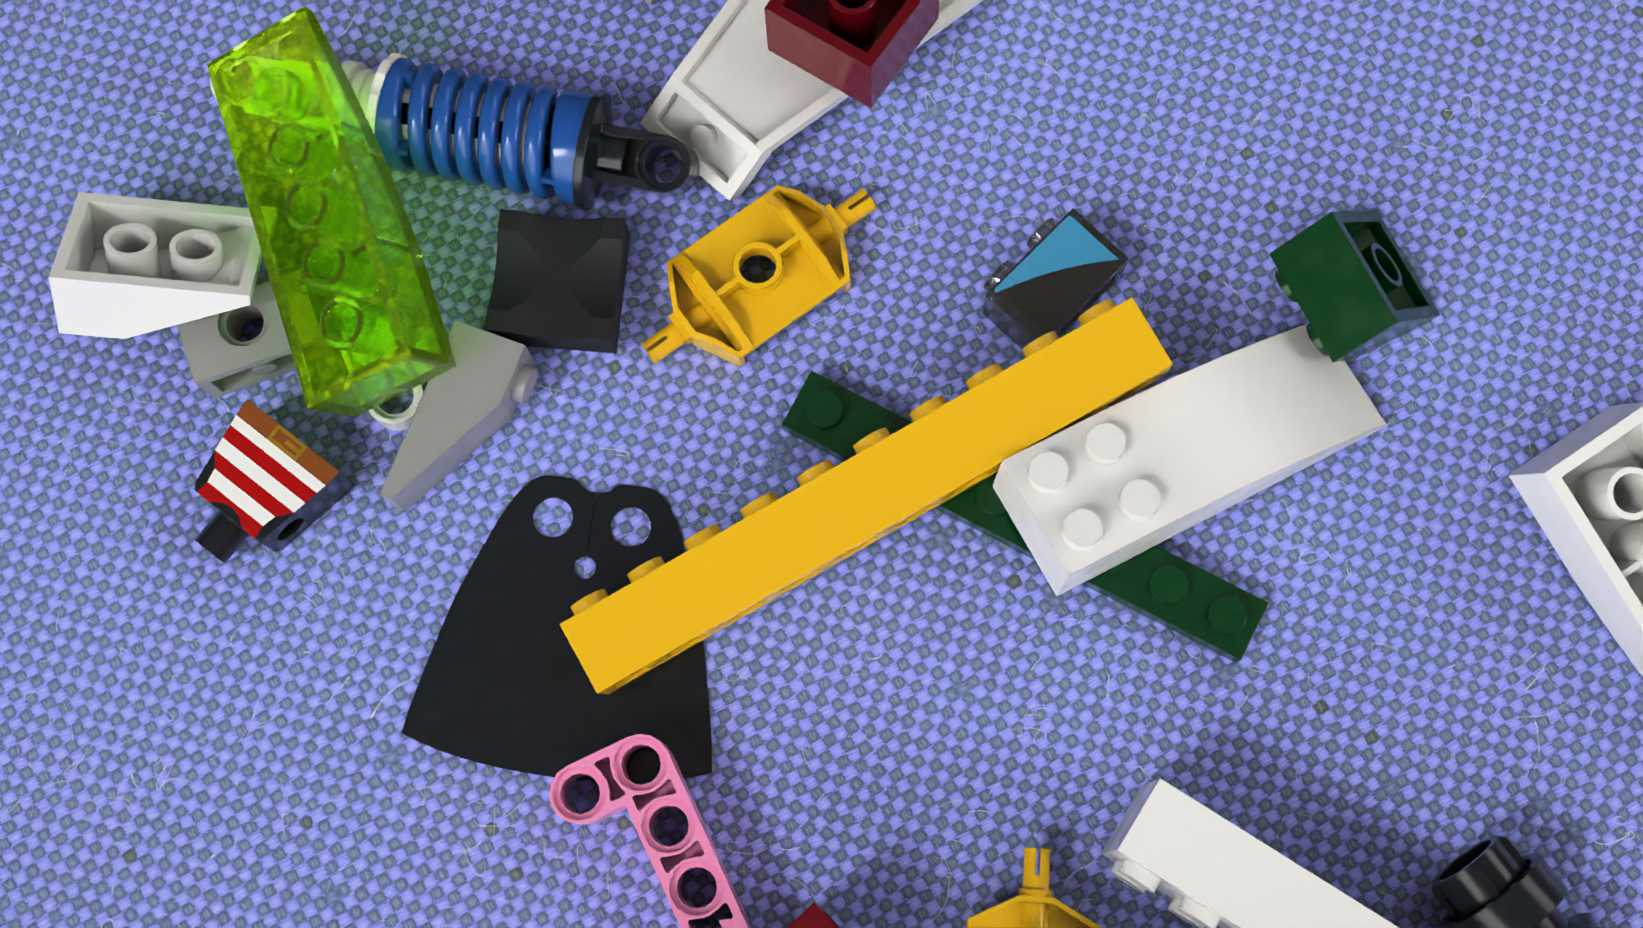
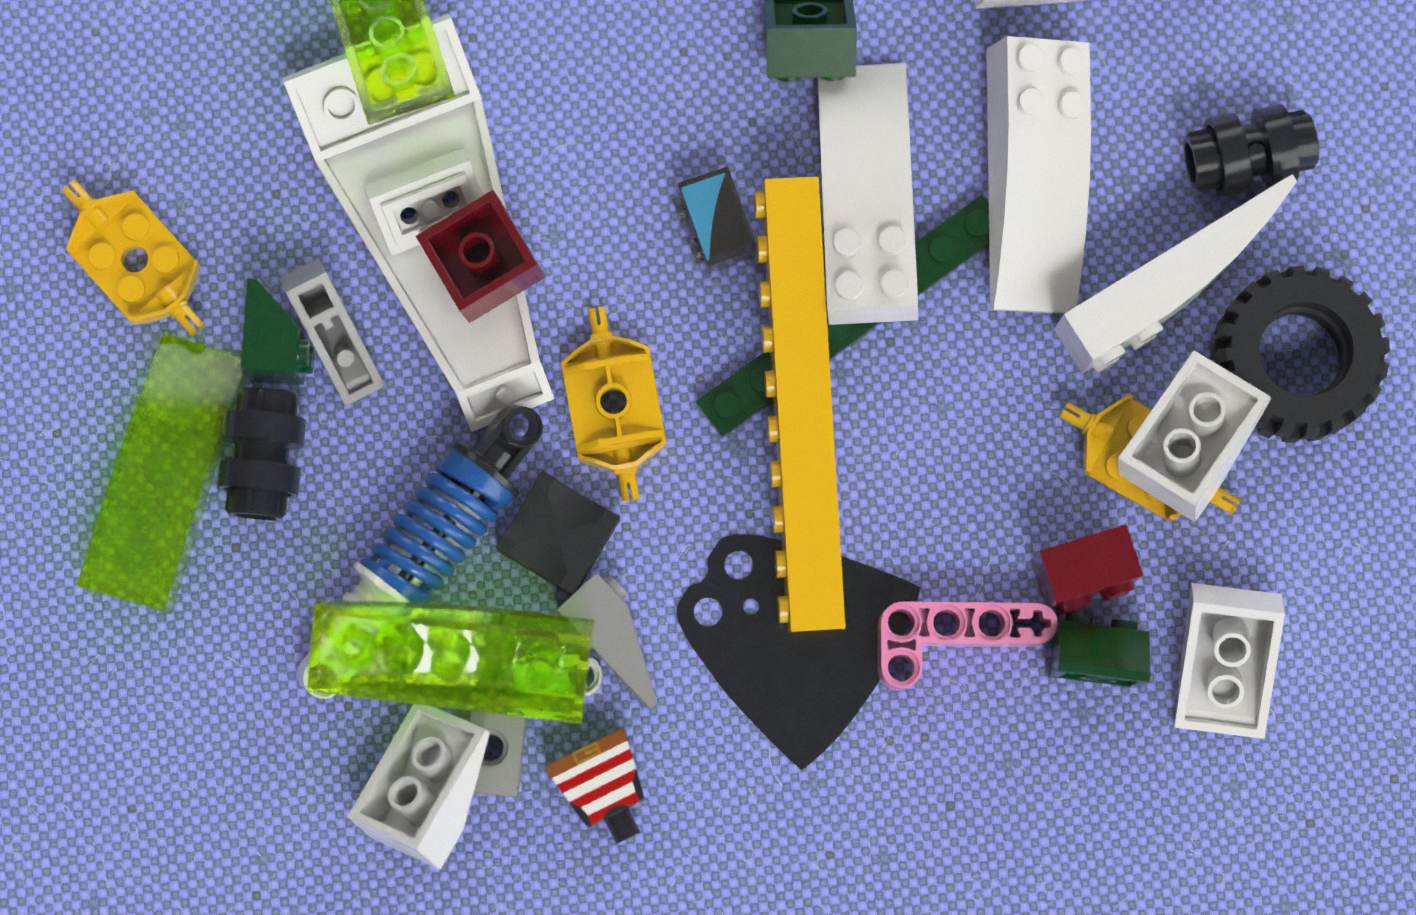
camera: 75 degrees left, 5 degrees up
(1339, 659) = (1037, 172): none -> white slope

